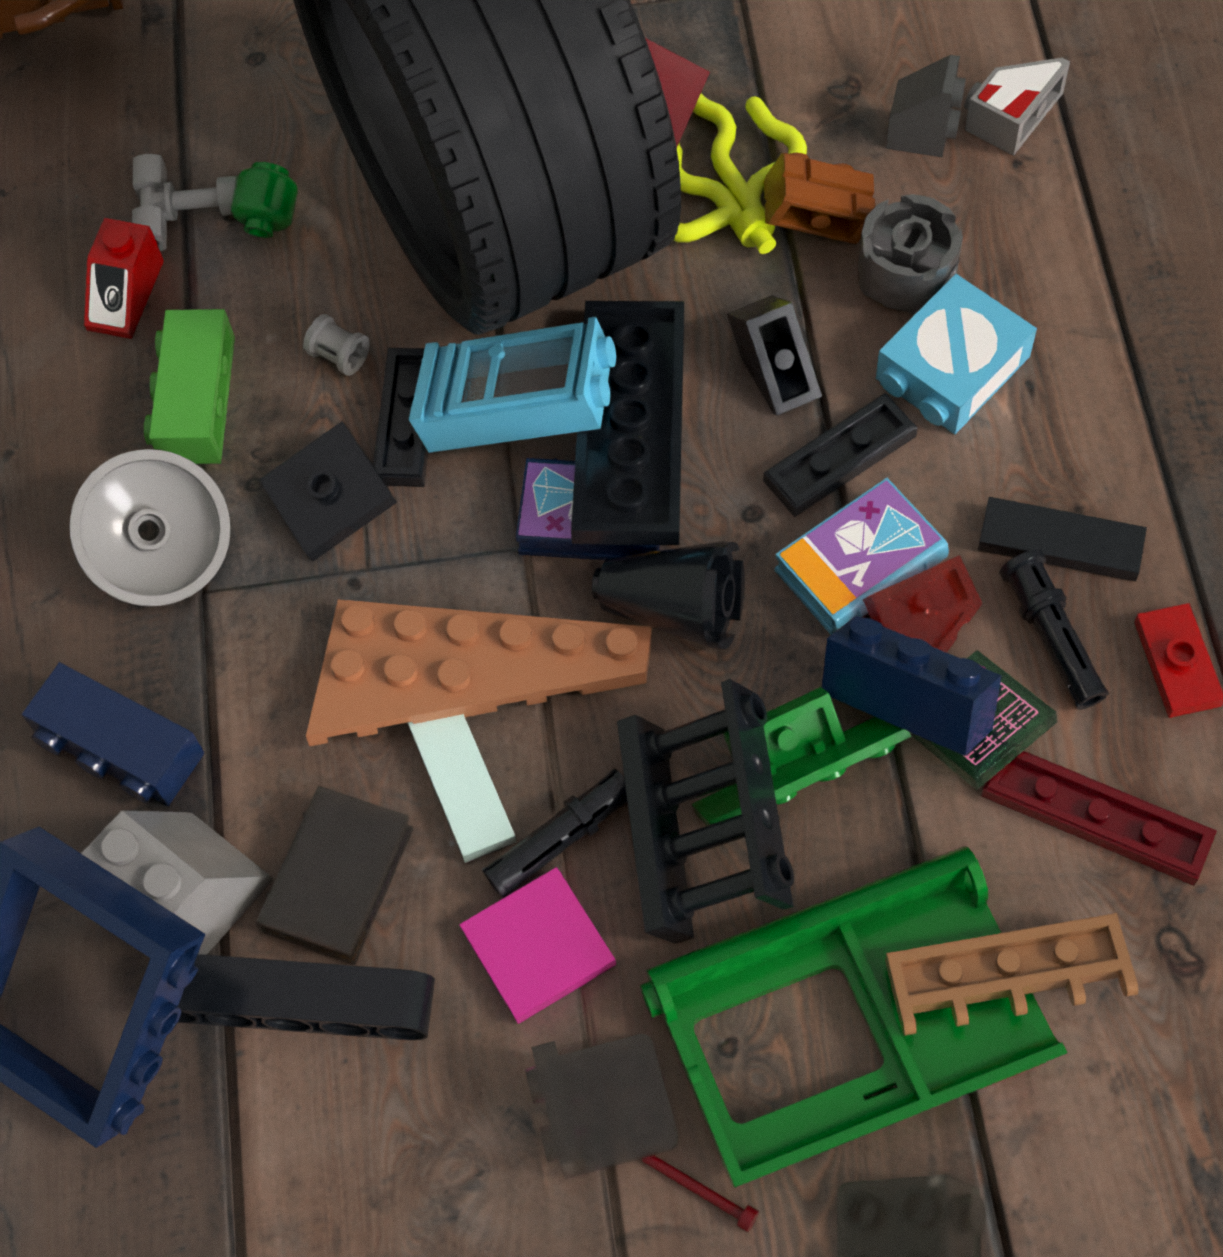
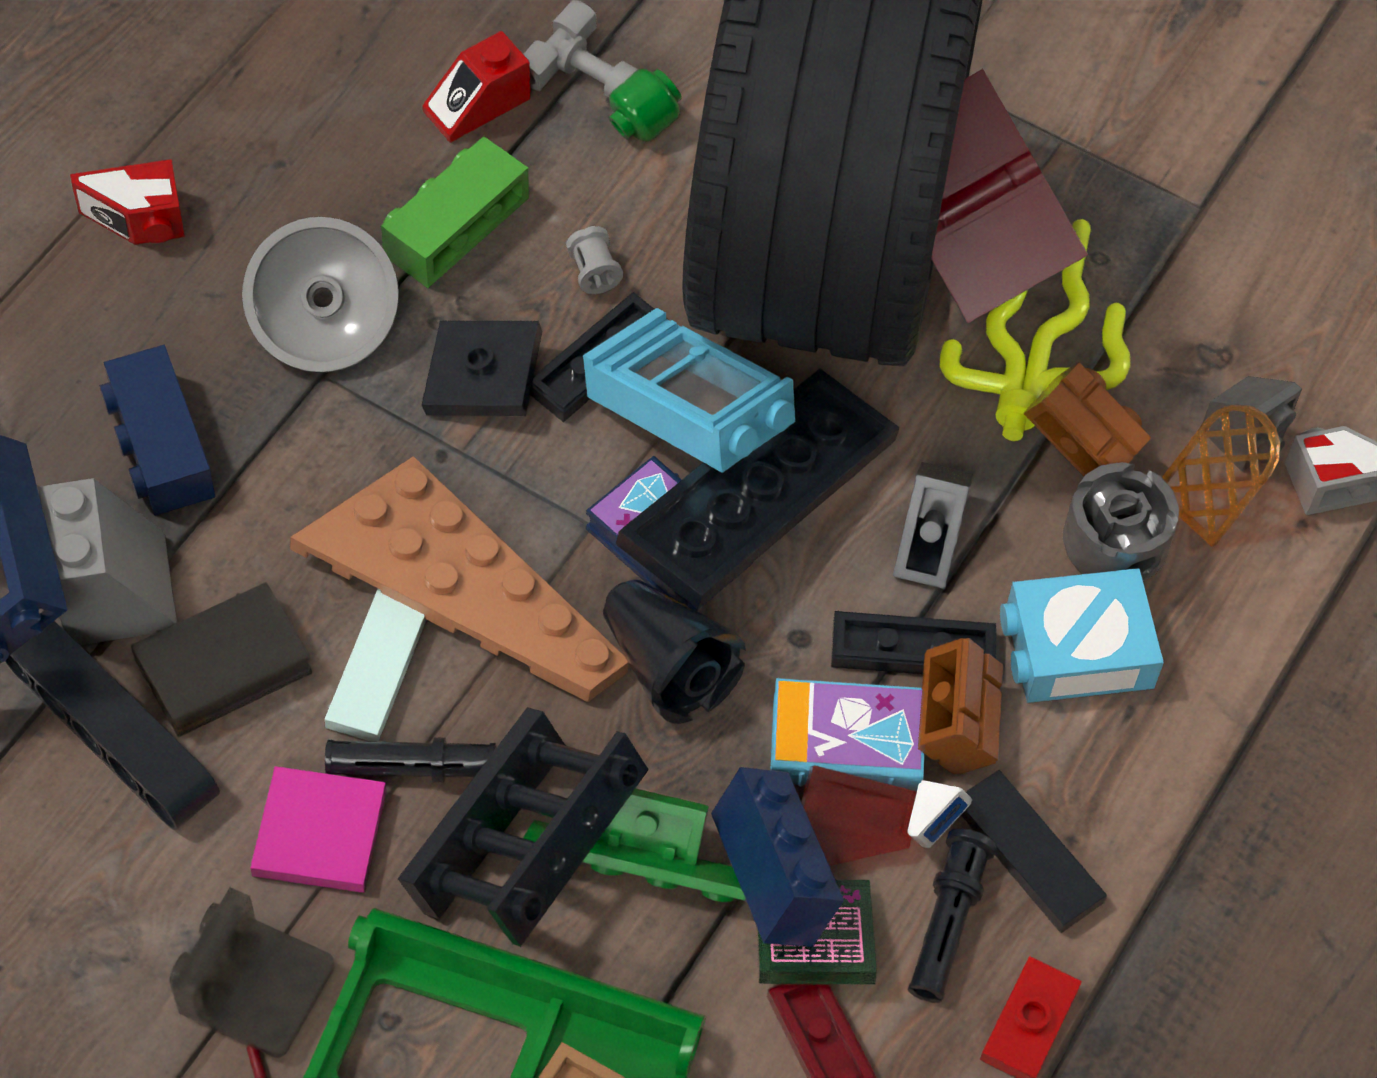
camera: 30 degrees right, 5 degrees down
(925, 470) = (960, 706): none -> dark orange brick
(946, 147) = (1211, 536): none -> clear orange window
(978, 559) = (935, 811): none -> white slope

